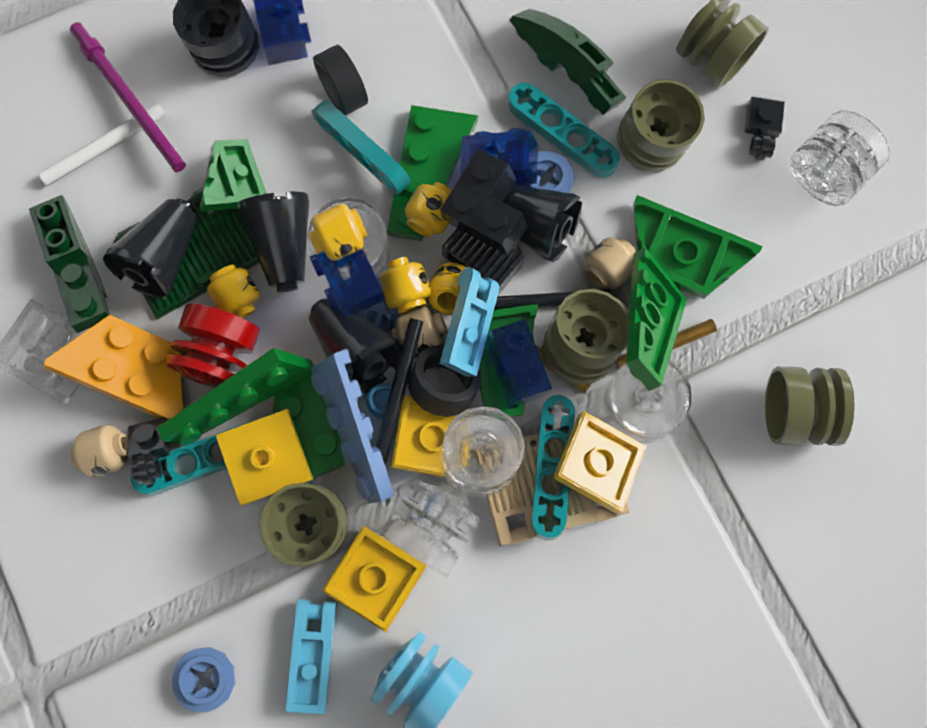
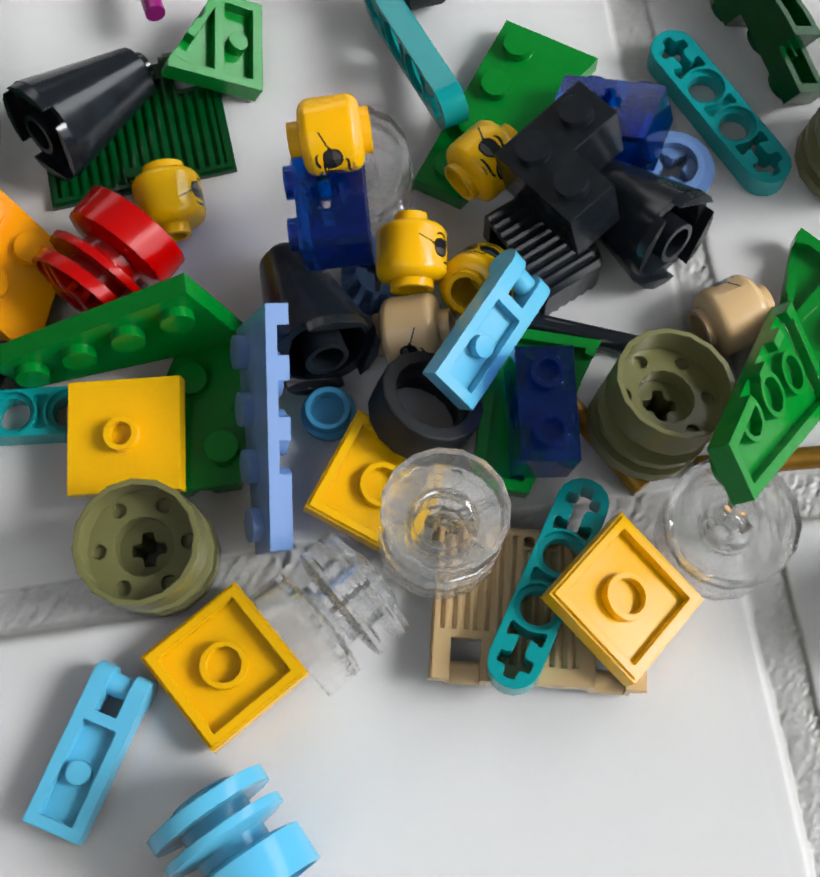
camera: 25 degrees right, 5 degrees down
(278, 236) = (253, 138): black cone -> none
(398, 387) = (352, 398): black bar -> none

